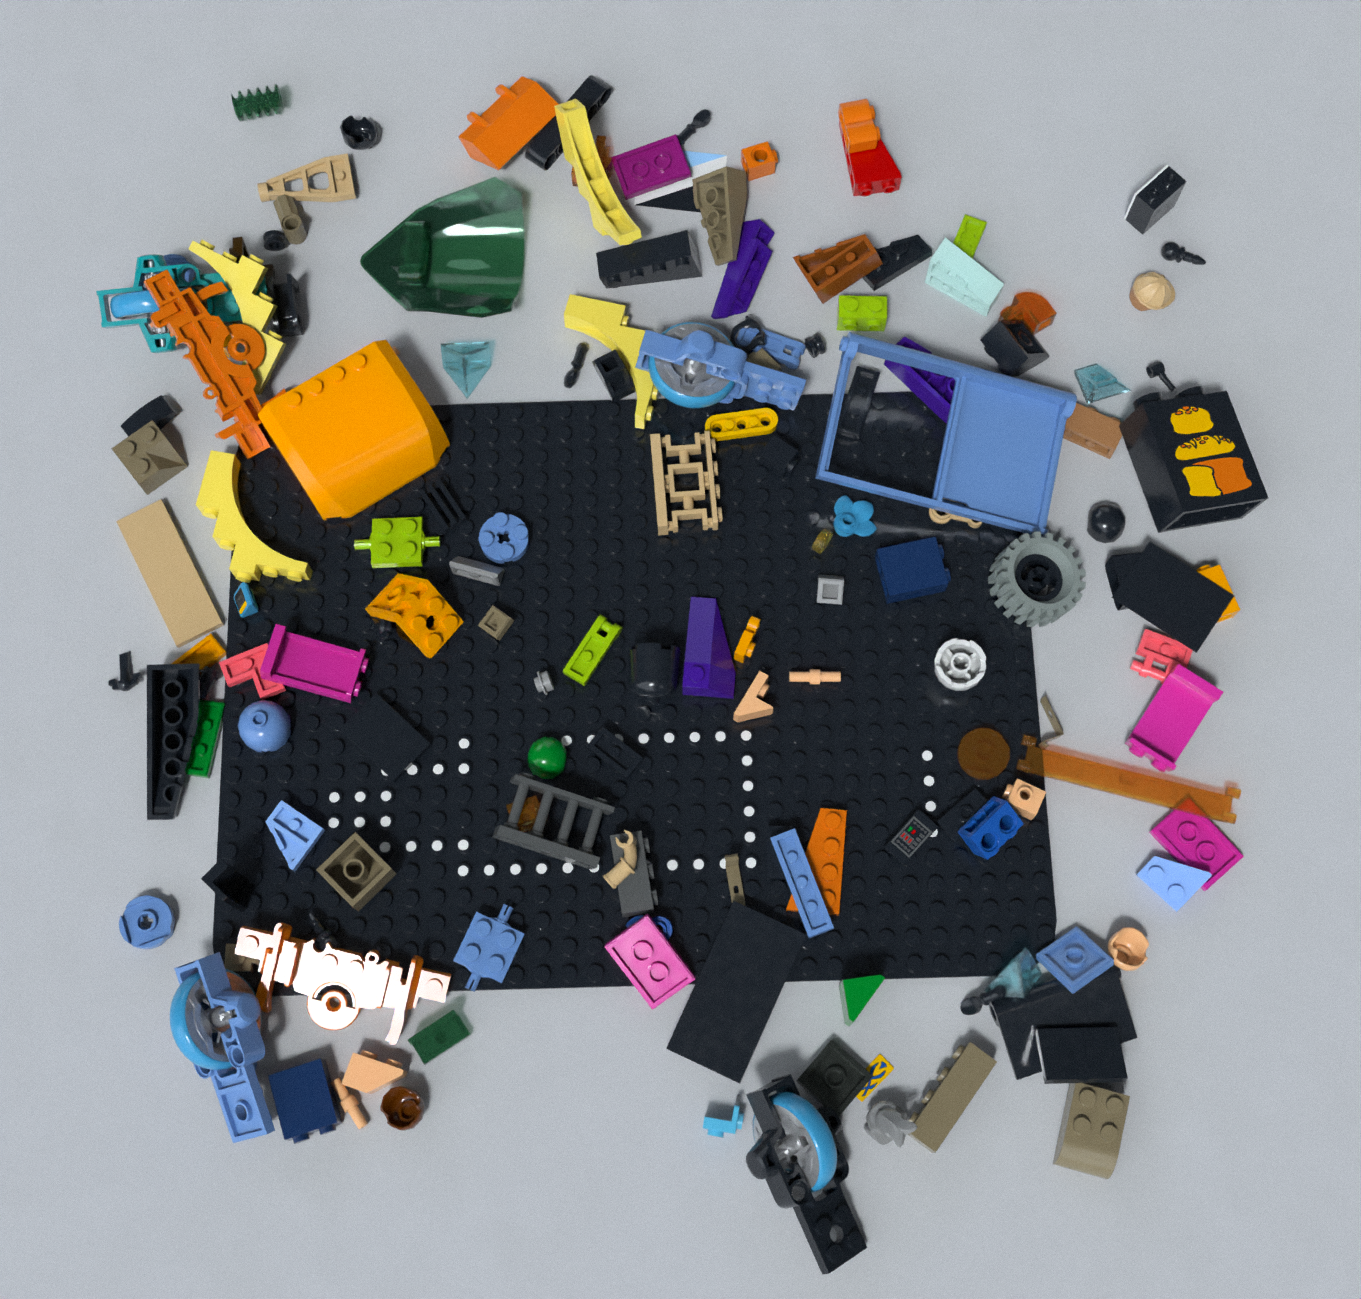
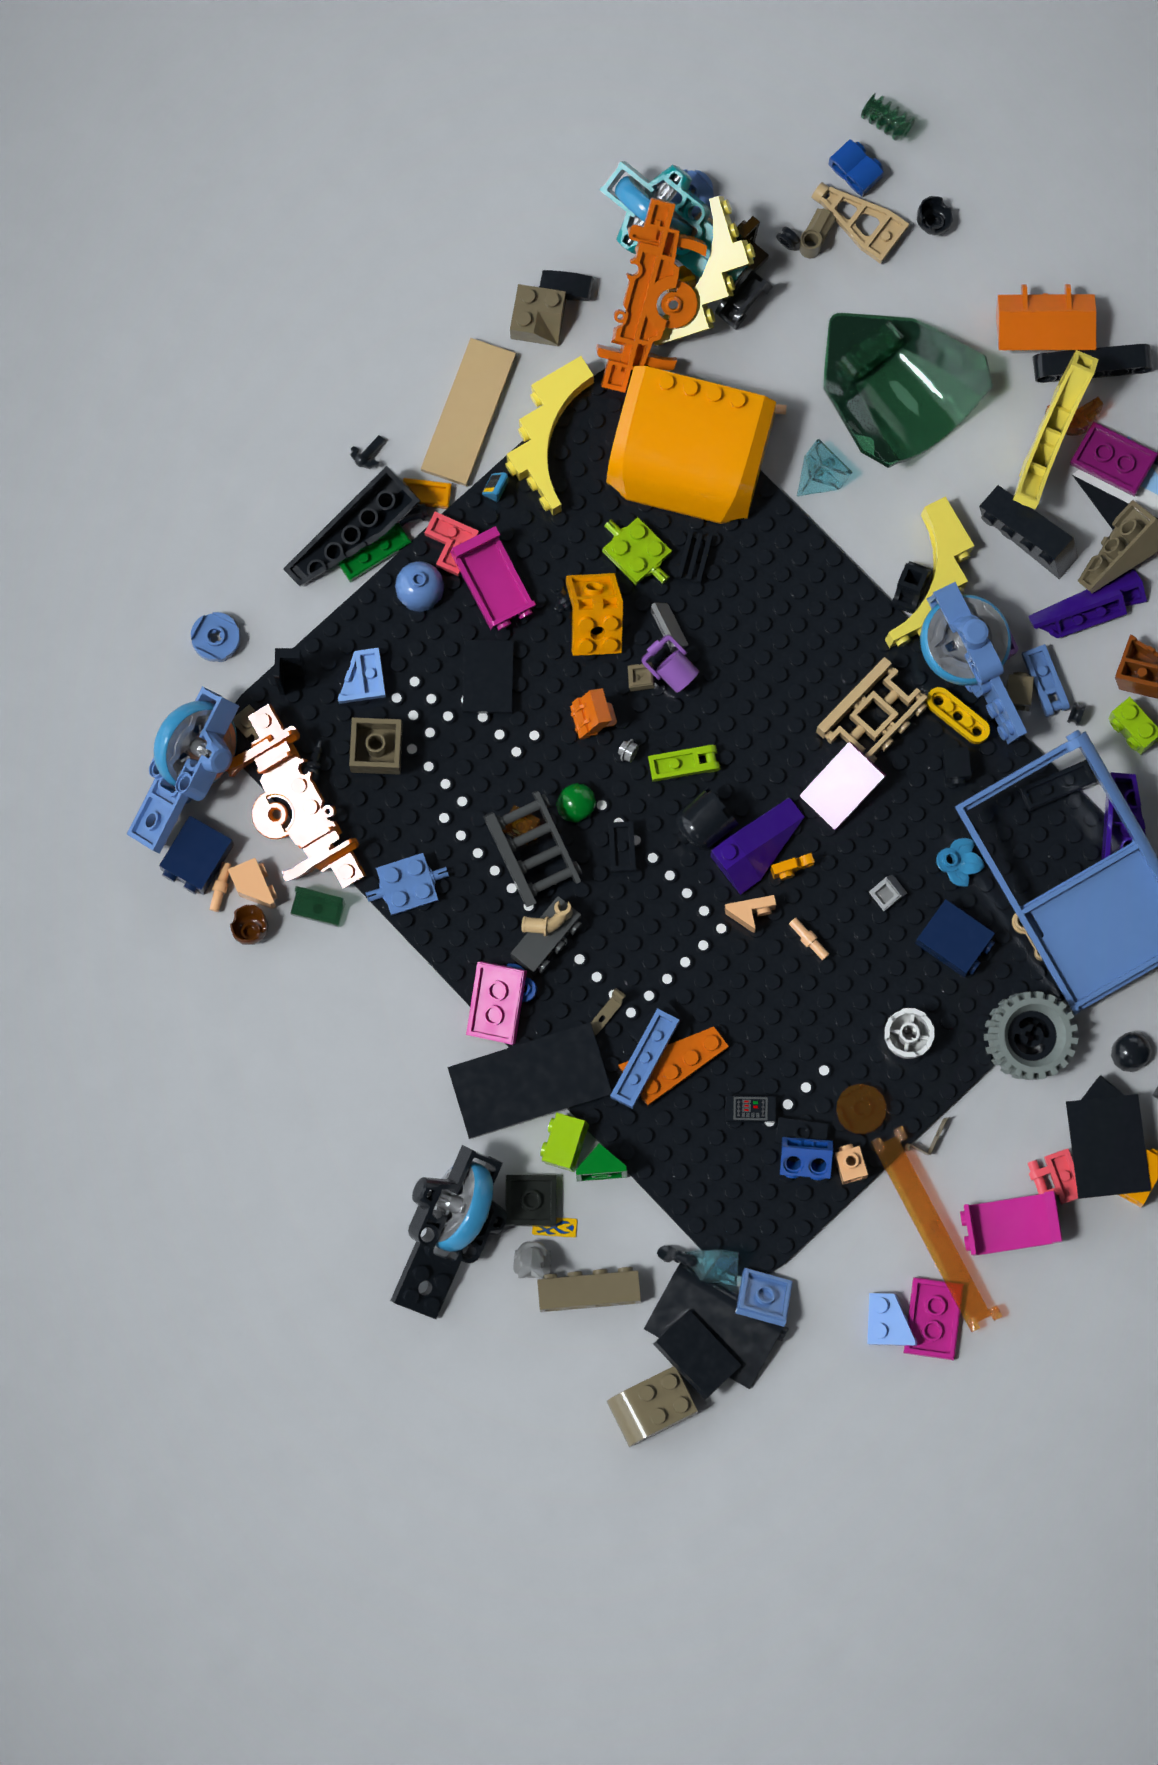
camera: 50 degrees right, 5 degrees up
(270, 153) = (856, 167): none -> blue brick
(490, 682) = (592, 713): none -> orange piece
(507, 551) = (718, 612): medium blue plate -> none
(515, 590) = (675, 669): none -> medium lavender piece
(570, 376) = (885, 555): black piece -> none
(718, 1127) = (426, 1149): medium azure bracket -> none
(720, 548) = (842, 785): none -> tile
(758, 340) = (1036, 668): black piece -> none
(811, 1007) = (564, 1142): none -> lime brick
(822, 541) = (918, 854): clear yellow tile -> none
(1128, 948) = (806, 1329): light nougat hair -> none

